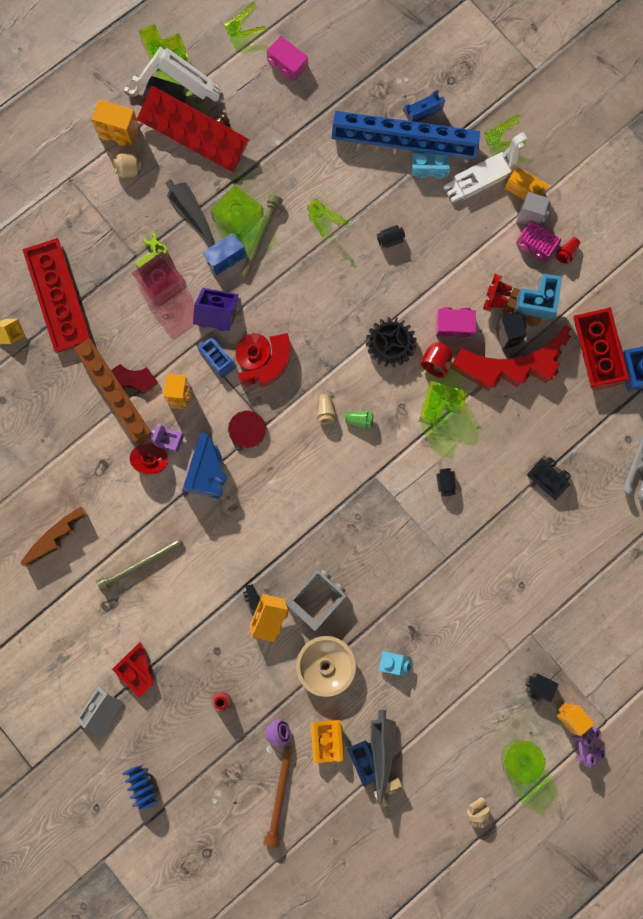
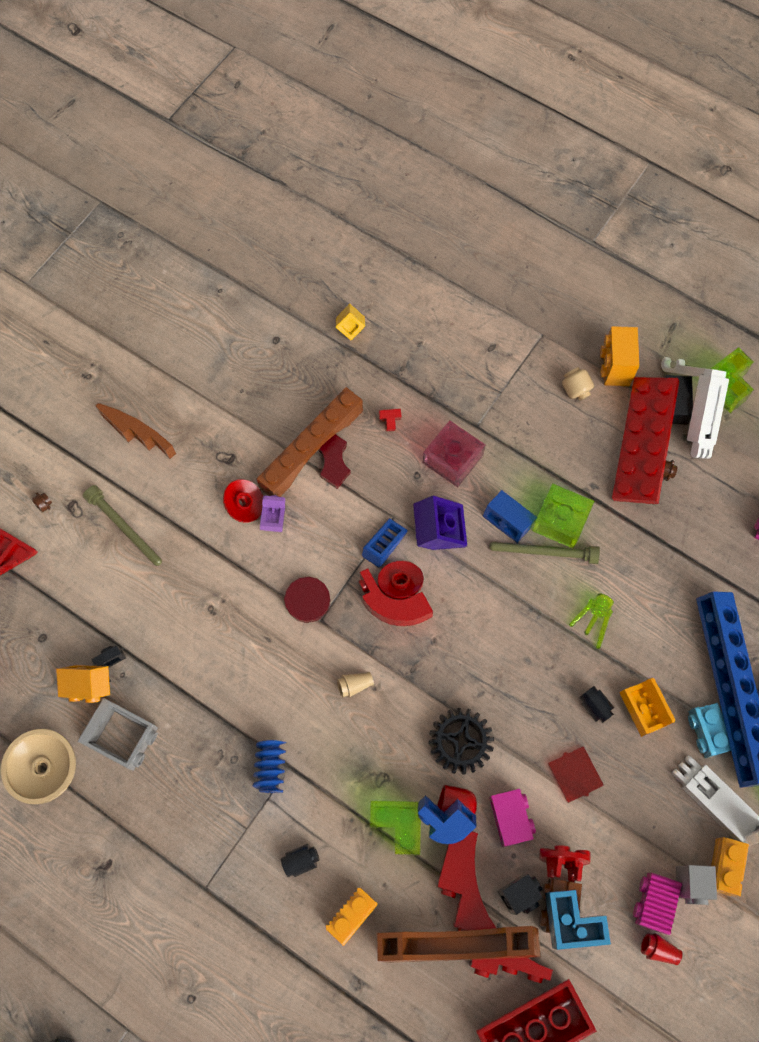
camera: 80 degrees right, 10 degrees down
(56, 295) = (404, 357): red plate -> none
(96, 630) = (42, 502): none -> reddish brown plate
(110, 322) = (390, 417): none -> red tile
(155, 246) = (492, 443): lime bar -> none
(177, 391) = (327, 507): light orange brick -> none
(187, 205) = (554, 461): dark grey piece -> none
(205, 470) = (243, 562): blue piece -> none
(361, 419) = (354, 731): bright green cone -> none
(373, 488) = (269, 766): none -> blue piece
(395, 664) = (58, 854): medium azure bracket -> none
(402, 201) = (647, 707): none -> light orange bracket
(435, 269) = (575, 774): none -> clear red piece
(453, 364) = (447, 826): none -> blue brick
(495, 454) = (351, 916): none -> light orange brick
(535, 381) = (459, 945): none -> dark orange arch
(550, 477) = (341, 1003): black bracket -> none

